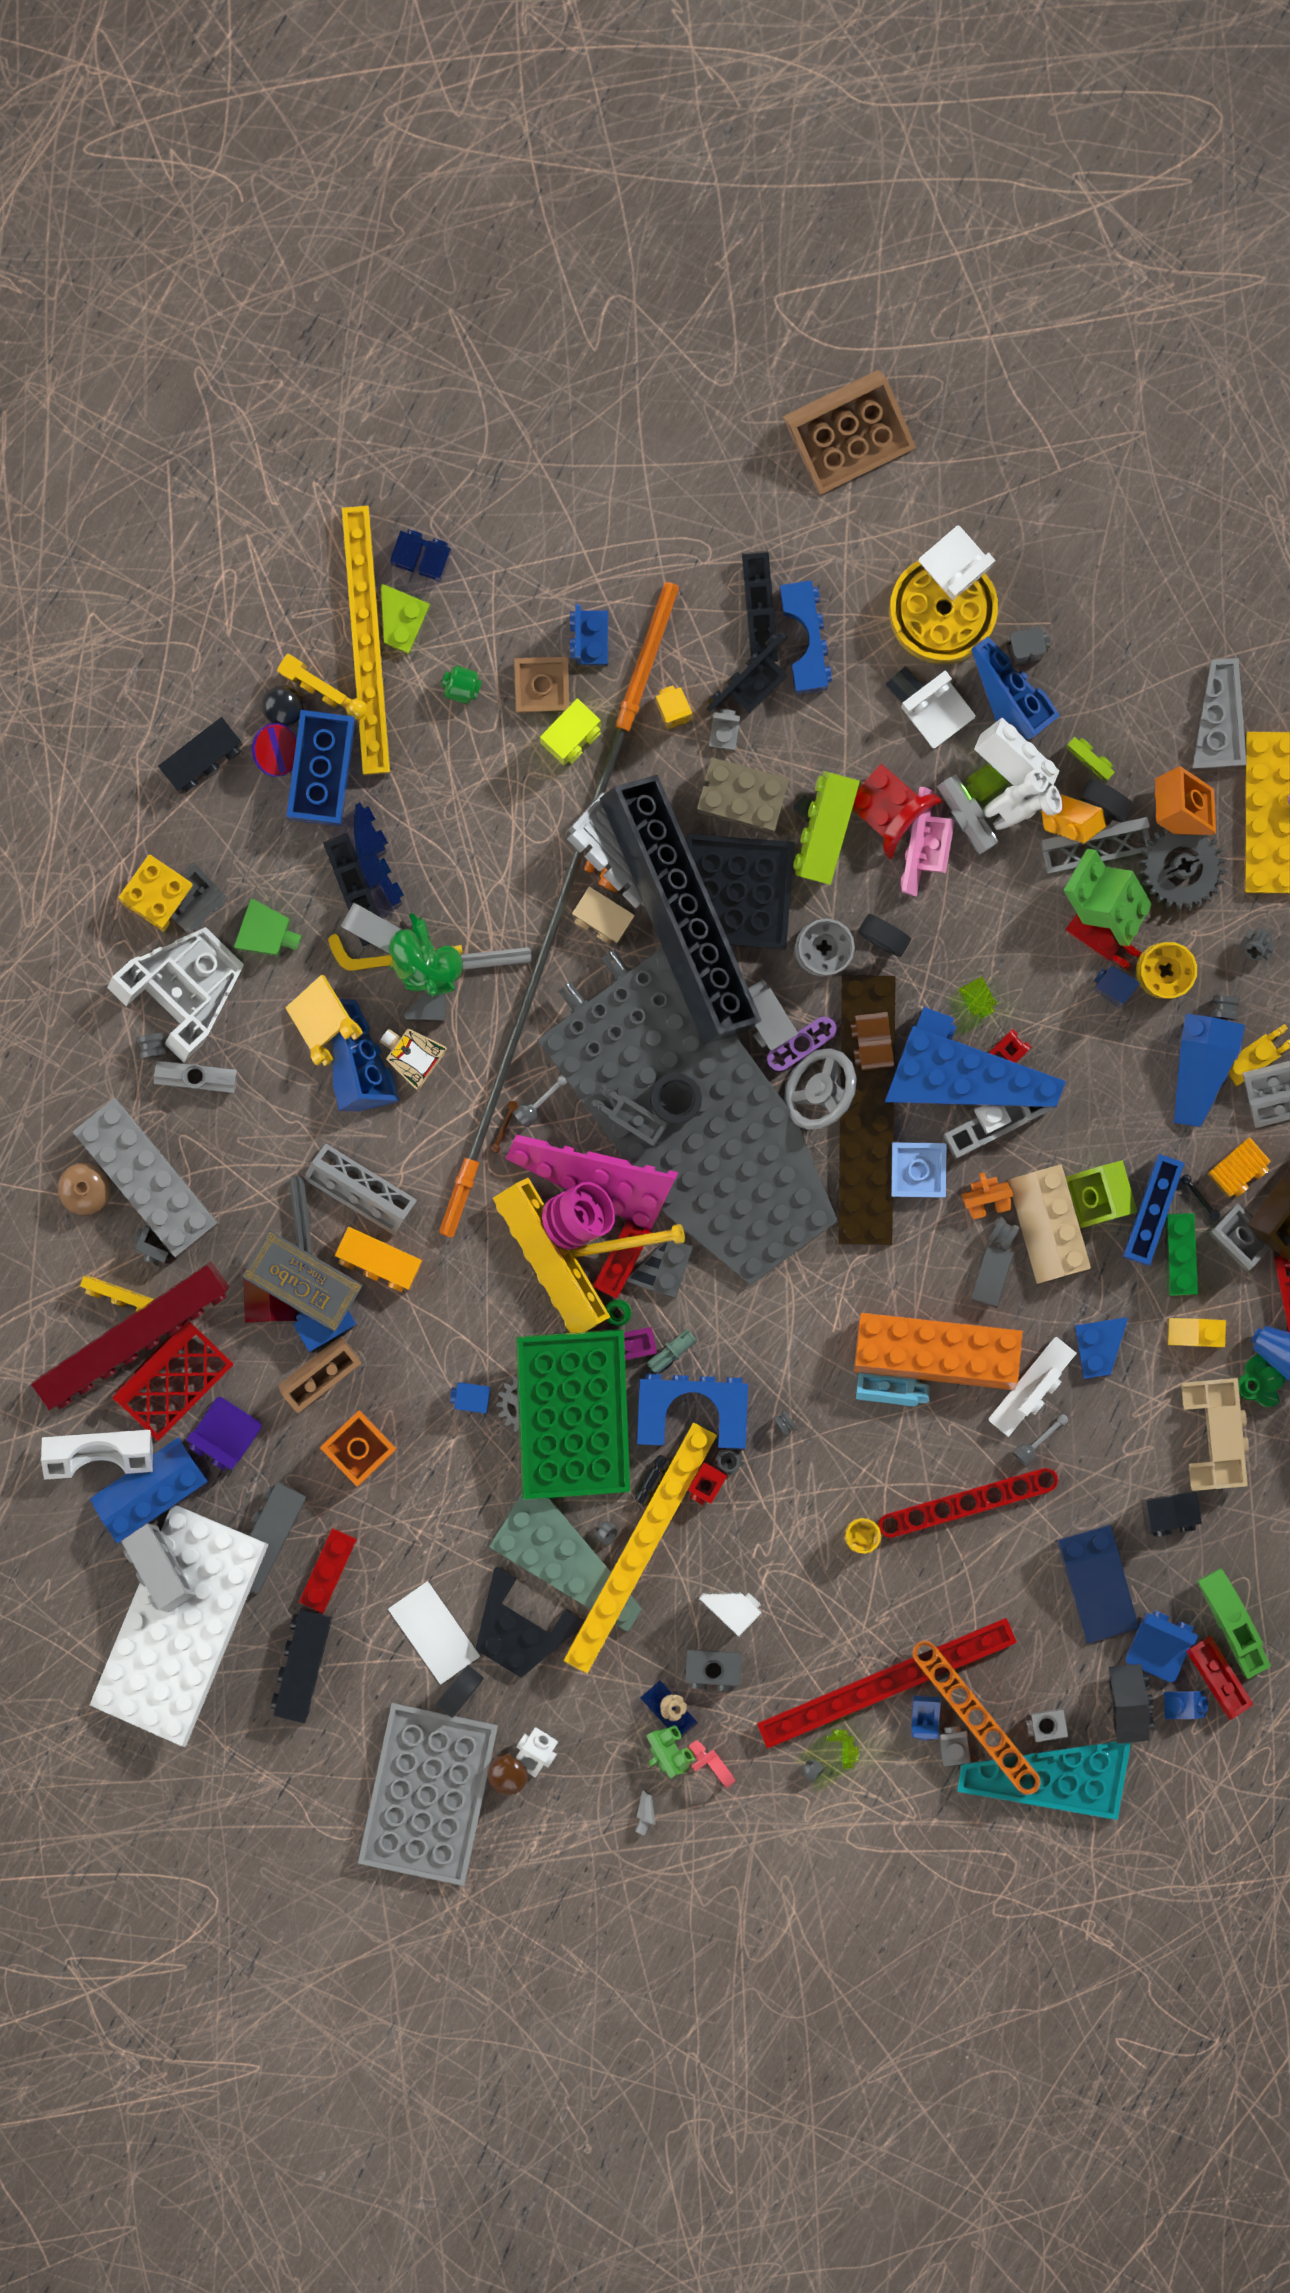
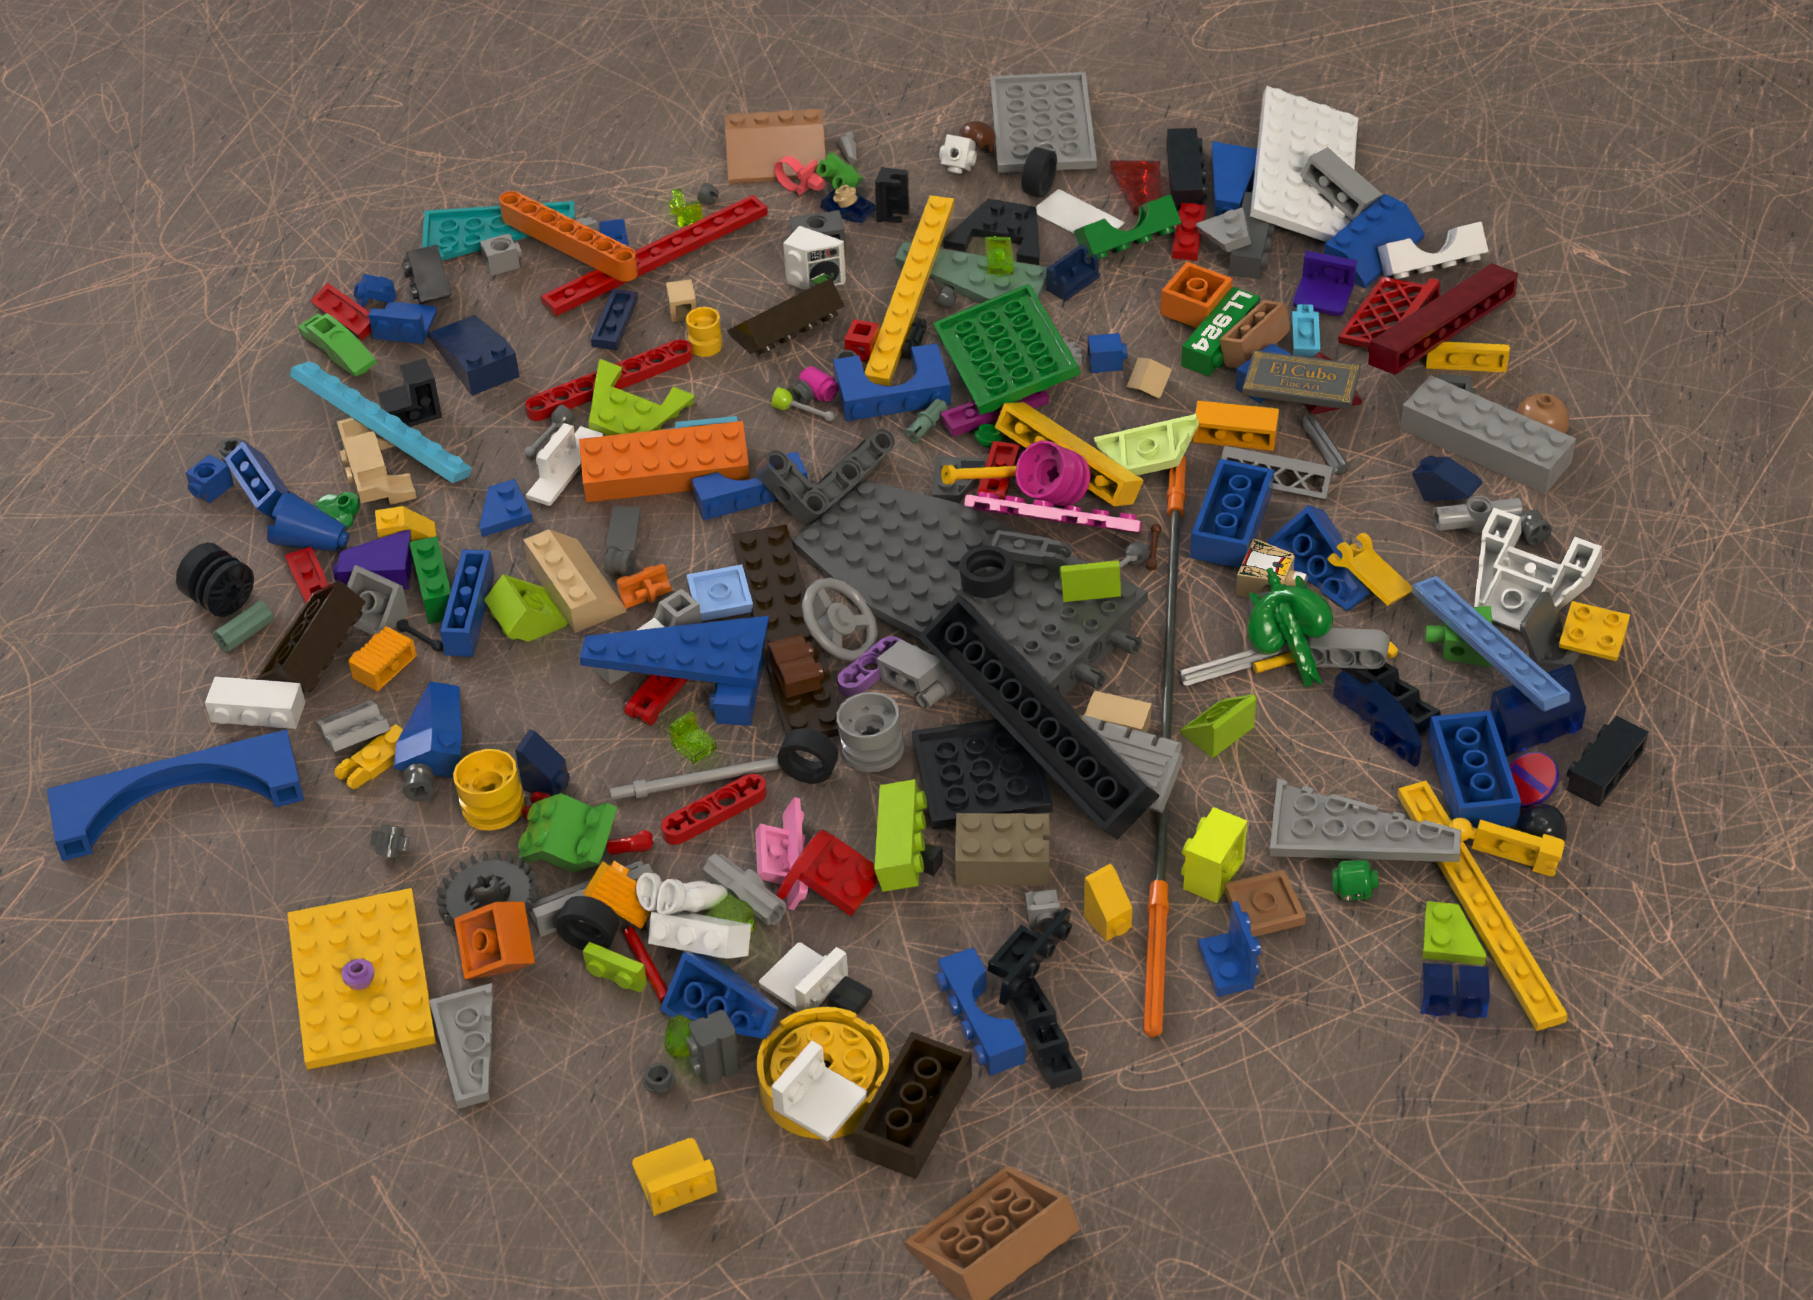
camera: 170 degrees right, 40 degrees down
(211, 1117) = (1444, 479): none -> dark blue slope
(242, 815) = (1525, 725): none -> clear blue slope
(259, 1632) = (1231, 175): none -> blue slope
(260, 886) = (1491, 644): none -> medium blue tile
(264, 1378) = (1305, 331): none -> medium azure hinge
(296, 1533) = (1227, 230): none -> light grey wing
(348, 1397) = (1203, 348): none -> green brick
(356, 1655) = (1137, 181): none -> clear red wing
(364, 1582) = (1153, 217): none -> green arch
(423, 1132) = (1231, 513): none -> blue brick
(440, 1351) = (1149, 377): none -> tan panel
(457, 743) = (1349, 829): none -> light grey wing
(468, 1527) = (1072, 273): none -> dark blue hinge
(472, 1246) = (1150, 446): none -> yellowish green wing
(516, 891) = (1222, 724): none -> lime slope
(537, 1570) = (999, 255): none -> clear neon green plate
(586, 1060) = (1090, 581): none -> lime slope
(629, 1694) = (891, 194): none -> black hinge
(725, 1826) = (764, 138): none -> medium nougat slope
(765, 1431) = (822, 385): none -> dark pink brick
(775, 1542) = (787, 317): none -> dark brown slope
(785, 1275) = (797, 492): none -> dark grey beam
(802, 1420) = (783, 400): none -> hinge
(874, 1598) = (680, 299): none -> tan brick
(881, 555) = (913, 1105): none -> dark brown brick
(896, 1298) = (721, 496): none -> blue arch
(947, 1590) = (614, 319): none -> dark blue plate
(961, 1439) = (623, 413): none -> lime wing
(973, 911) = (710, 805): none -> red beam
(1032, 953) = (641, 788): none -> light grey bar
(1048, 673) = (675, 1036): none -> clear neon green cone
(1052, 889) = (636, 843): none -> red arm
(1061, 760) = (643, 957): none -> red bar
(1078, 546) = (674, 1175): none -> yellow bracket
(1080, 641) = (656, 1072): none -> dark grey plate
(1205, 1479) = (381, 422): none -> medium azure plate
(1228, 1291) = (384, 556): none -> dark purple slope

